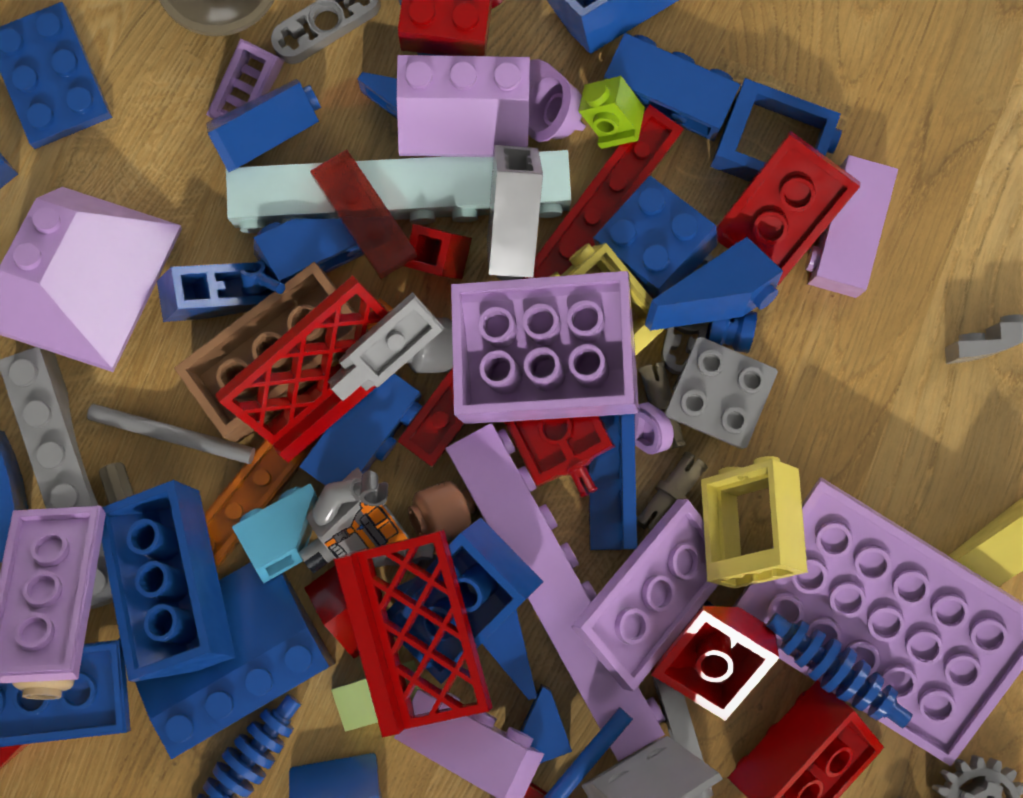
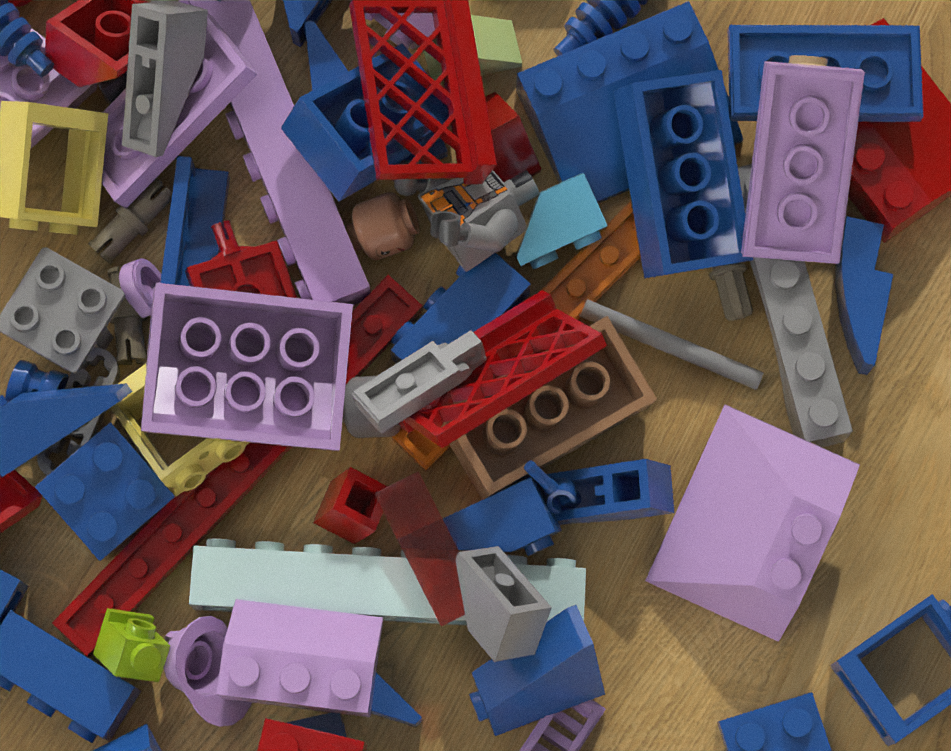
camera: 170 degrees left, 5 degrees down
(294, 165) = (500, 604): none -> light grey slope
(514, 212) = (258, 522): light grey brick -> none
(662, 622) = (162, 66): none -> light grey slope

